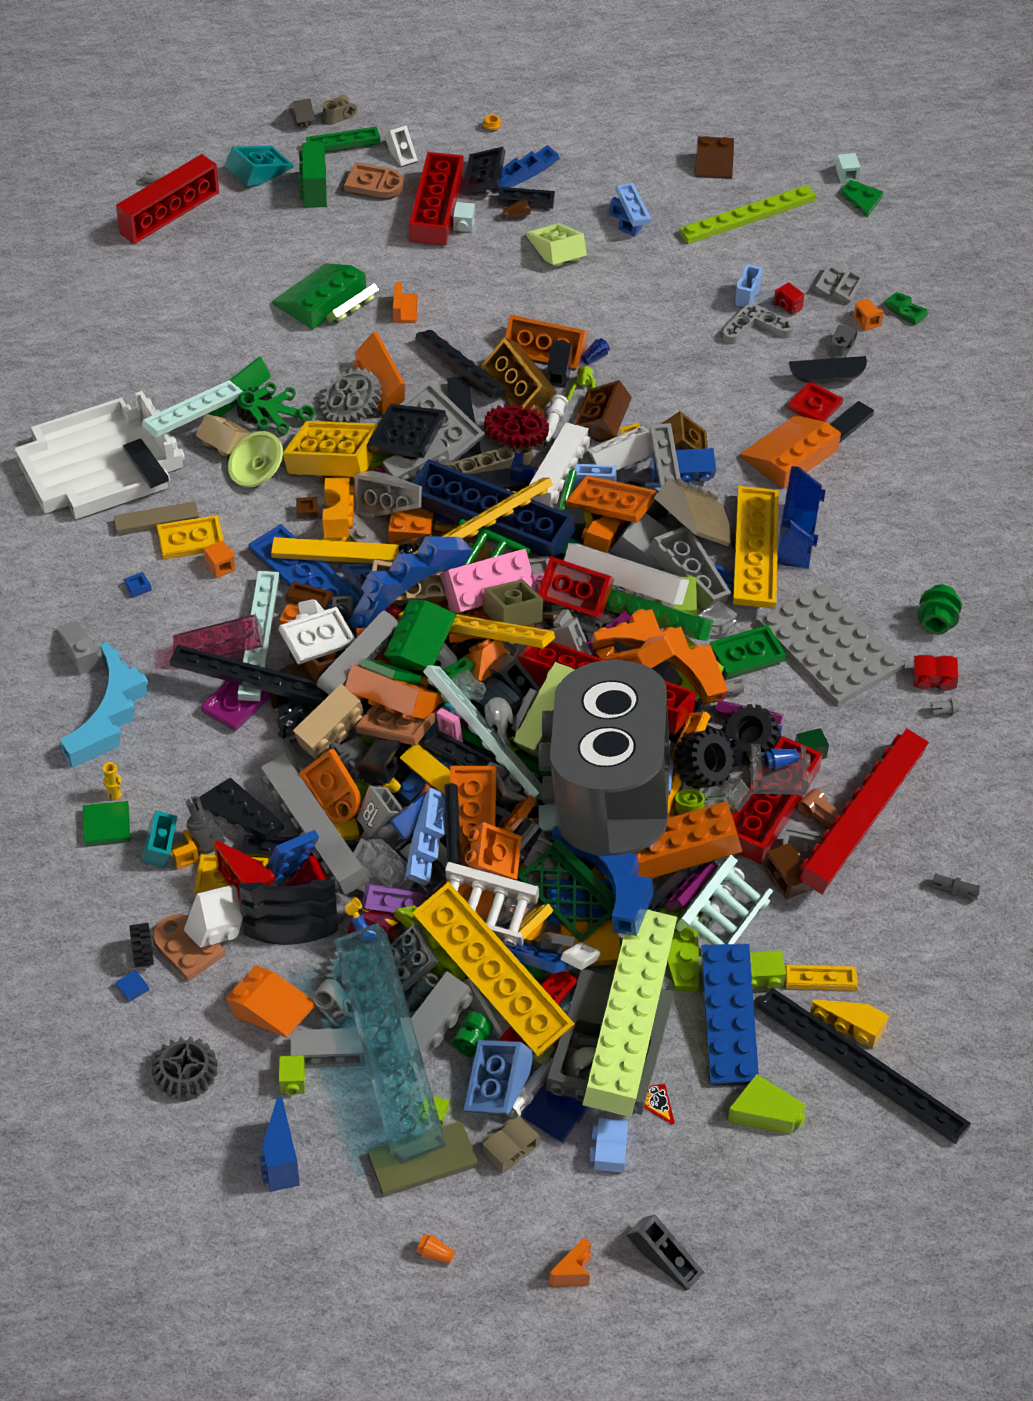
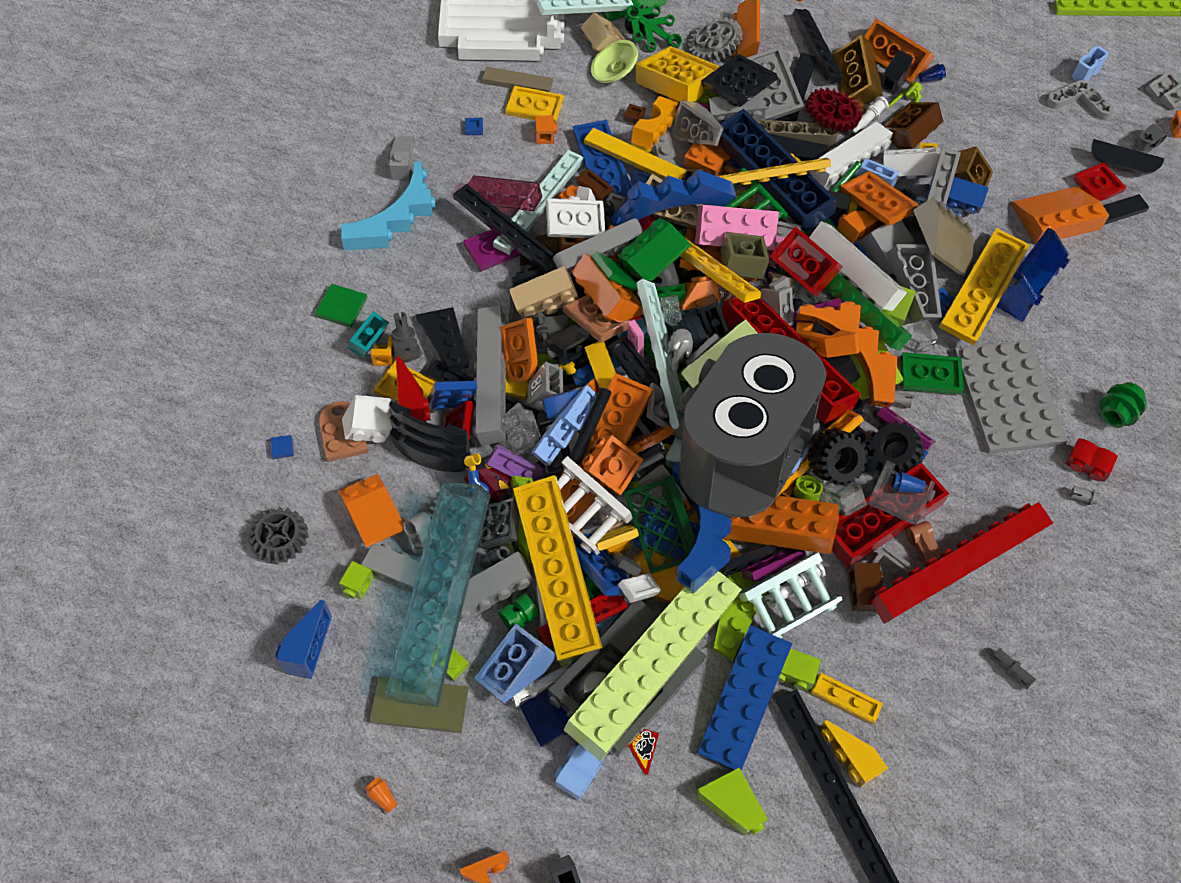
camera: 25 degrees right, 10 degrees up
(112, 781) = (359, 273): yellow pin -> none
(141, 944) = (303, 416): black tyre -> none
(145, 463) = (529, 34): black tile -> none
(510, 1144) = (496, 727): dark tan brick -> none
(521, 472) = (815, 145): clear blue panel -> none
(789, 298) = (1120, 87): red brick -> none
(815, 740) = (949, 478): dark green brick -> none

